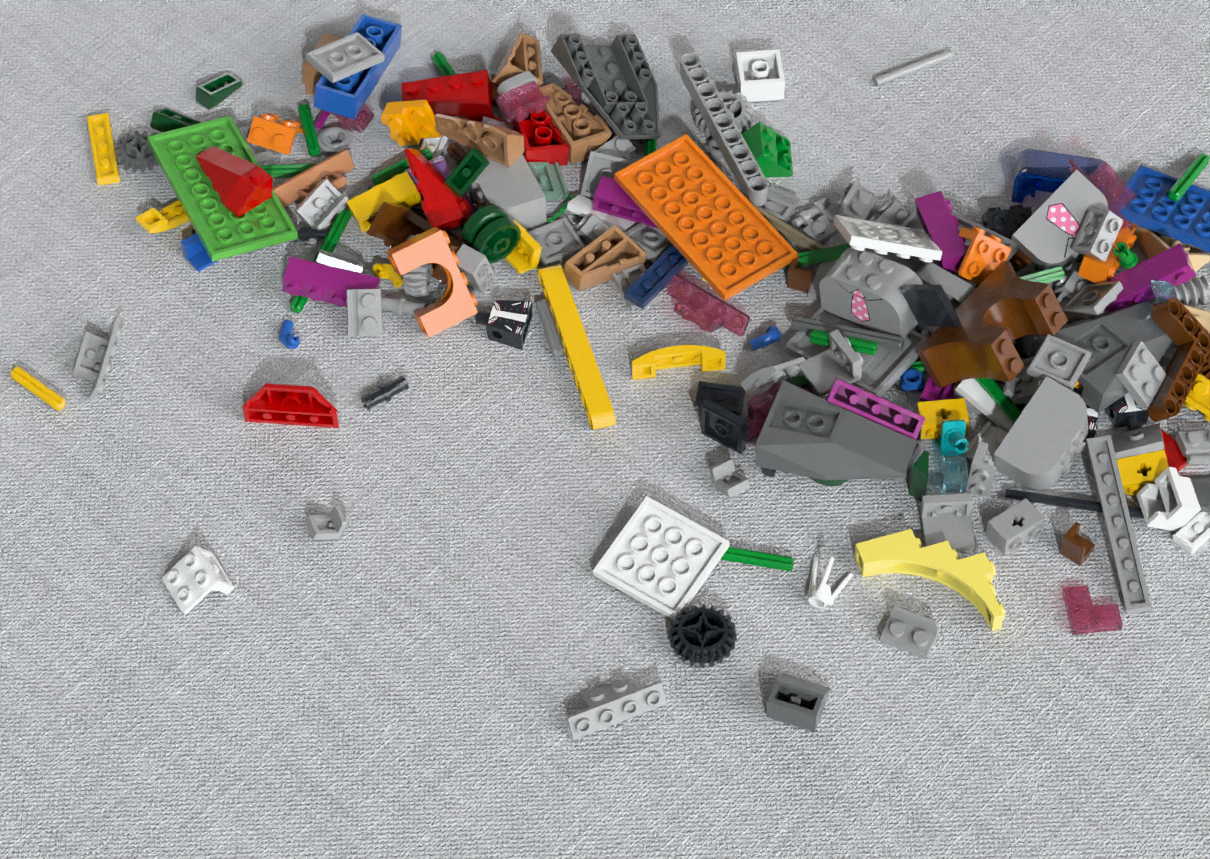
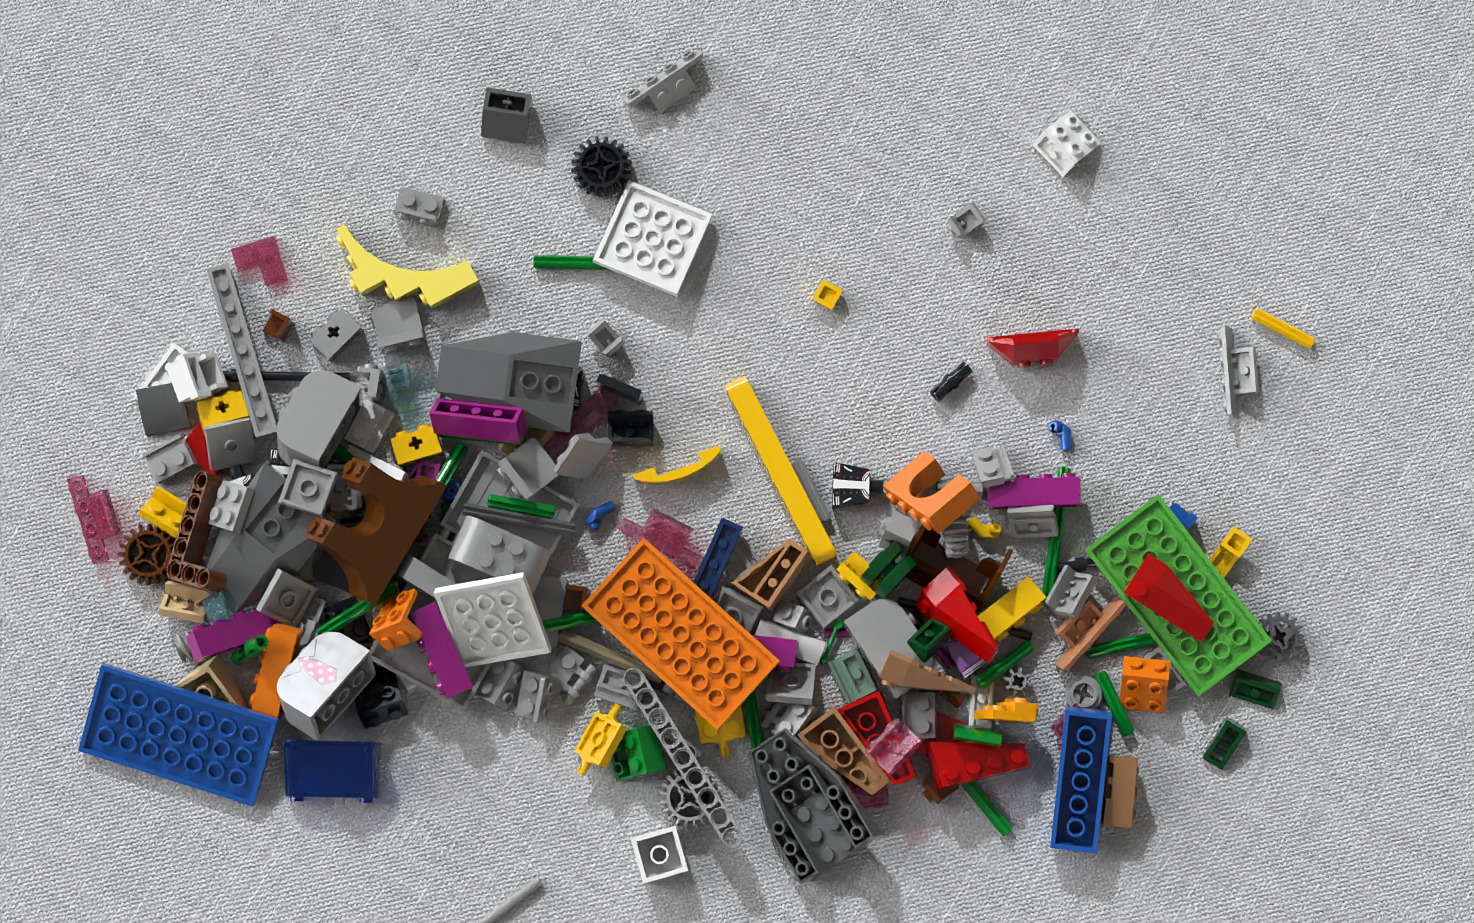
camera: 170 degrees right, 30 degrees up
(103, 149) = (1319, 641): yellow tile -> none
(345, 57) = (1093, 768): light grey tile -> none
(392, 152) = (1016, 688): none -> light grey gear
(444, 100) = (977, 734): none -> green slope
(489, 484) = (827, 295): none -> yellow plate
(516, 82) = (905, 769): light grey beam -> none
(520, 57) = (912, 817): medium nougat wedge -> none
(799, 161) = (600, 739): none -> yellow plate
(820, 594) = (502, 231): white plant -> none
(914, 388) = (452, 463): none -> green axle
(919, 476) = (428, 365): dark green slope -> none
(930, 305) = (437, 525): black tile -> none
(952, 437) = (402, 412): teal bracket -> none
(1097, 233) = (285, 654): light grey bracket -> none
(1113, 188) = (281, 728): clear pink bracket -> none
(1188, 177) = (202, 793): green axle -> none

